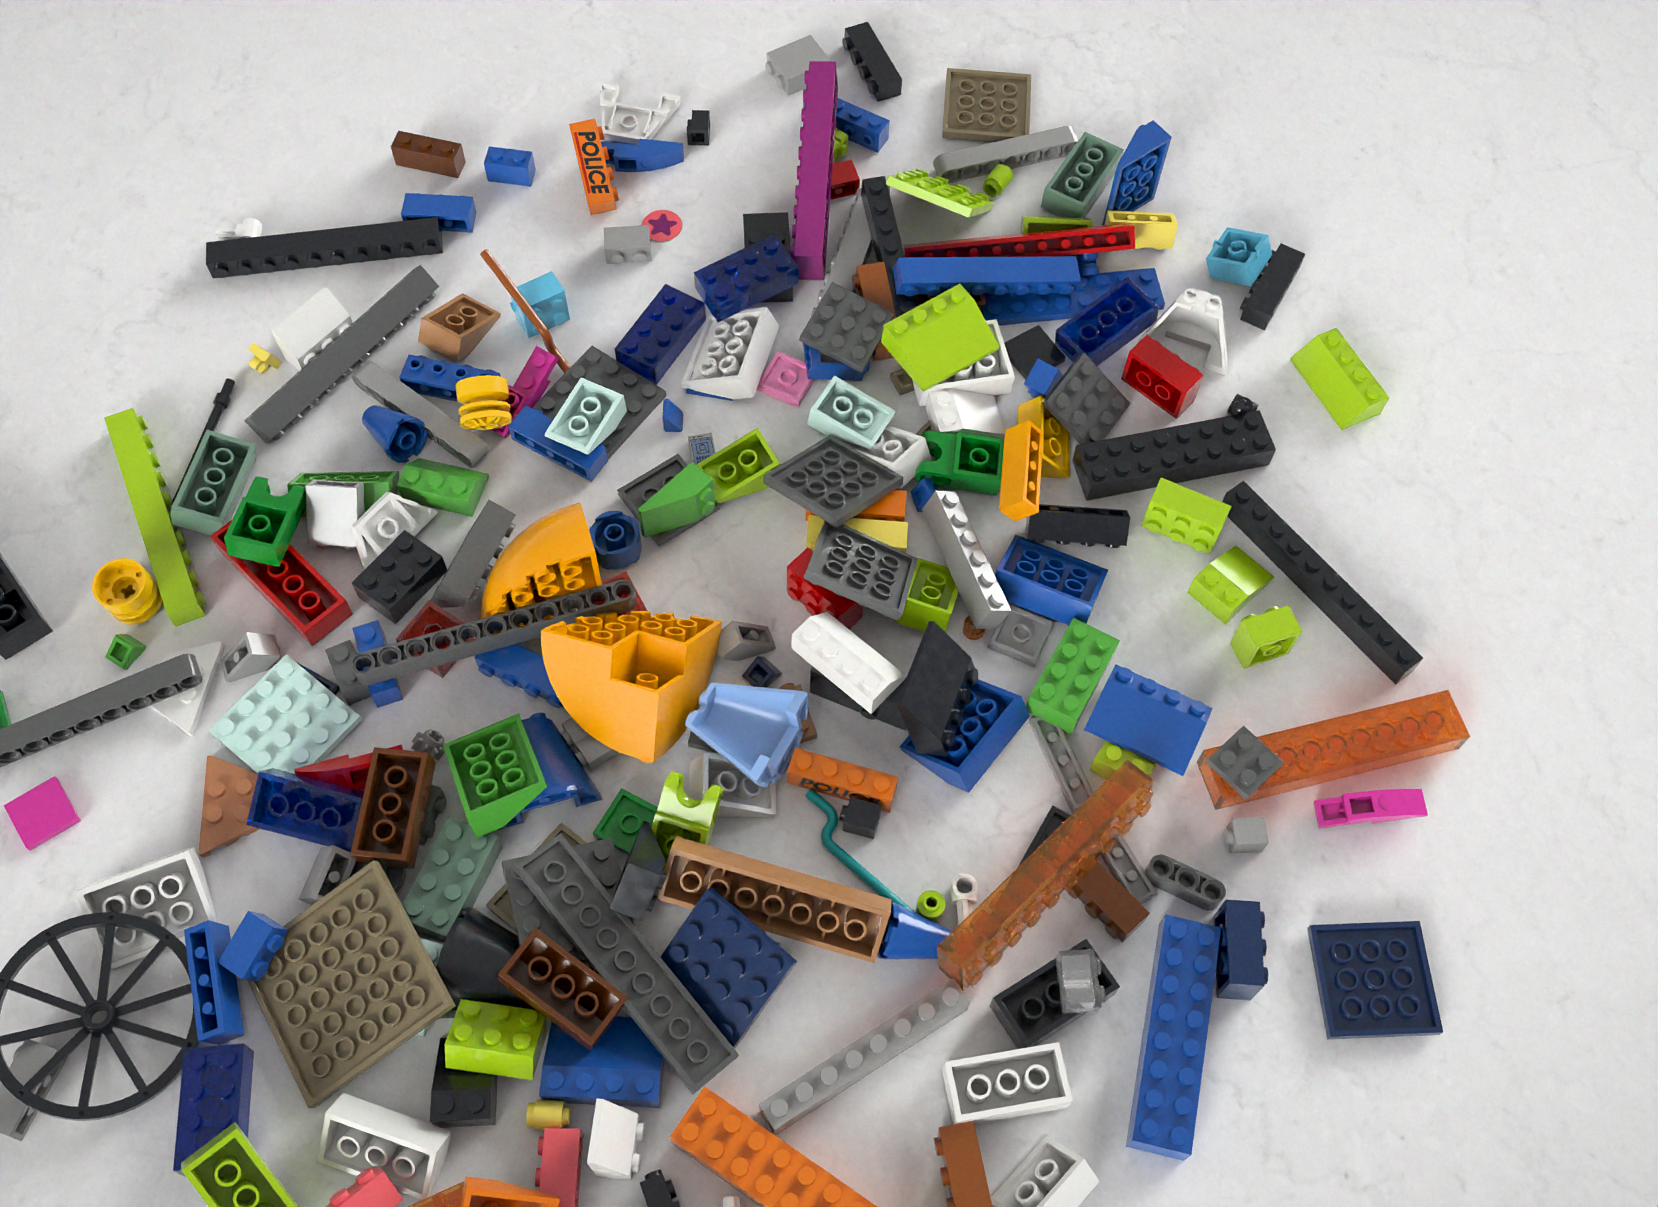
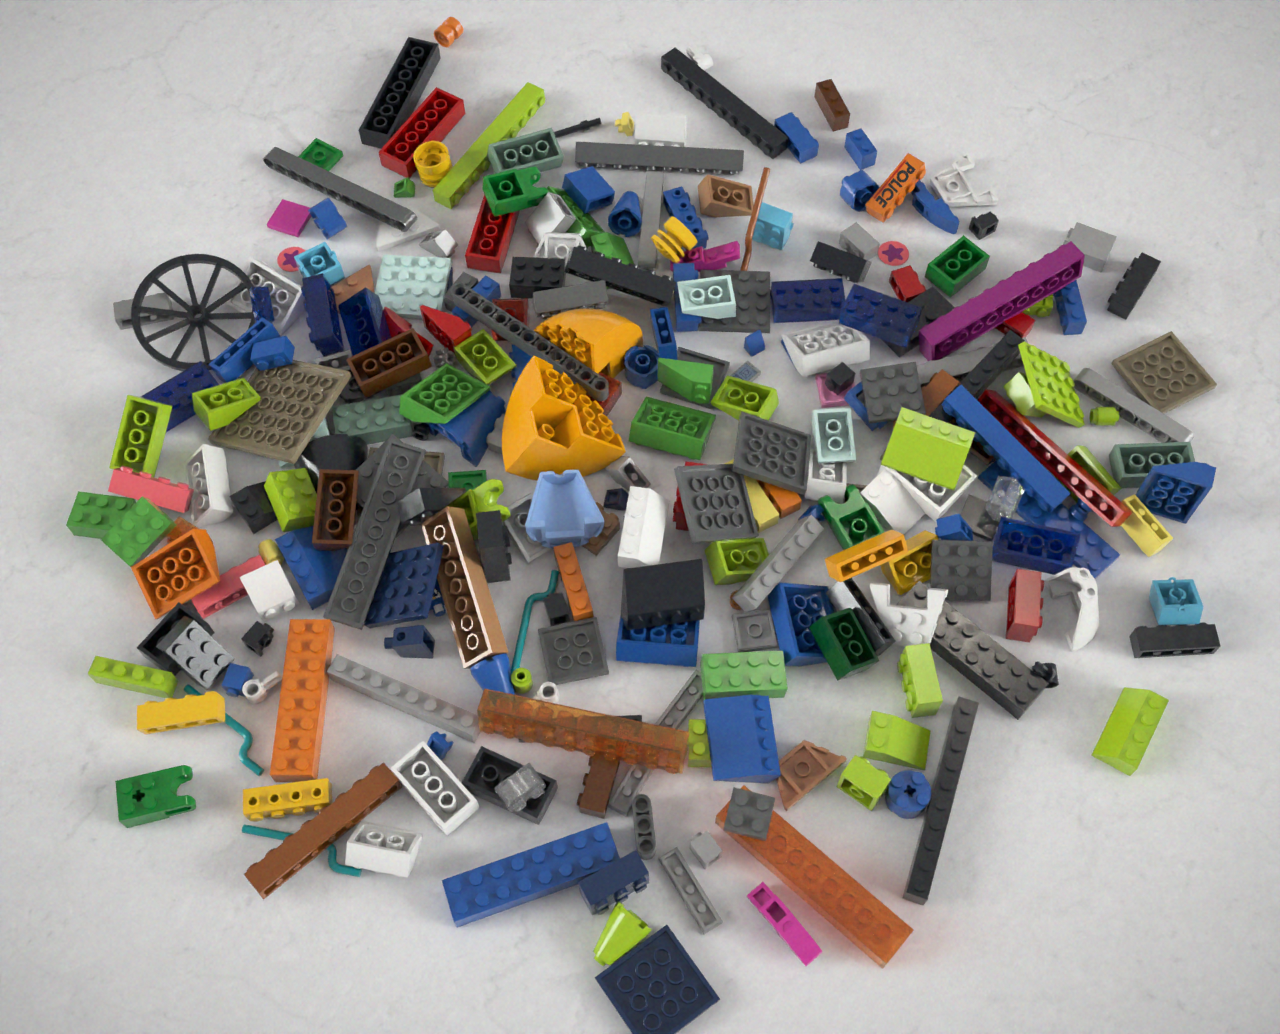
camera: 60 degrees right, 0 degrees up
(63, 578) = (428, 123): none -> red brick
(93, 762) = (327, 218): none -> blue brick
(109, 846) = (286, 258): none -> coral sticker
(160, 919) = (261, 303): none -> clear blue plate
(161, 816) = (318, 261): none -> medium azure brick
(243, 848) = (322, 314): none -> clear blue brick
(276, 1052) = (224, 402): none -> lime slope
(322, 449) = (588, 189): none -> blue brick
(393, 717) = (445, 327): none -> red slope
(469, 699) = (483, 357): none -> lime slope
(491, 482) = (620, 276): none -> black brick
(509, 833) = (420, 432): none -> black bush
(565, 200) = (858, 190): none -> blue brick
(592, 491) = (663, 333): none -> blue brick
(644, 273) = (840, 262): none -> black brick
(716, 560) = (671, 428): none -> bright green slope
(717, 237) = (906, 283): none -> red brick
(732, 180) = (957, 266): none -> green brick
(750, 827) = (493, 546): none -> black brick
(785, 365) = (840, 378): none -> black brick
(800, 995) = (411, 642): none -> dark blue torso
(925, 832) = (573, 651): none -> dark grey plate
(933, 220) = (1020, 393): none -> lime brick
(950, 1049) = (439, 745): none -> blue tile
(1037, 314) = (1004, 498): none -> clear brick
(1103, 557) = (844, 643): none -> dark green brick
(1121, 483) = (907, 623): none -> white wing
(1212, 680) = (803, 770): none -> nougat wing
(1279, 880) = (690, 890): none -> light grey tile
(1298, 981) = (619, 935): none -> lime cone
(1304, 599) = (912, 783): none -> blue brick

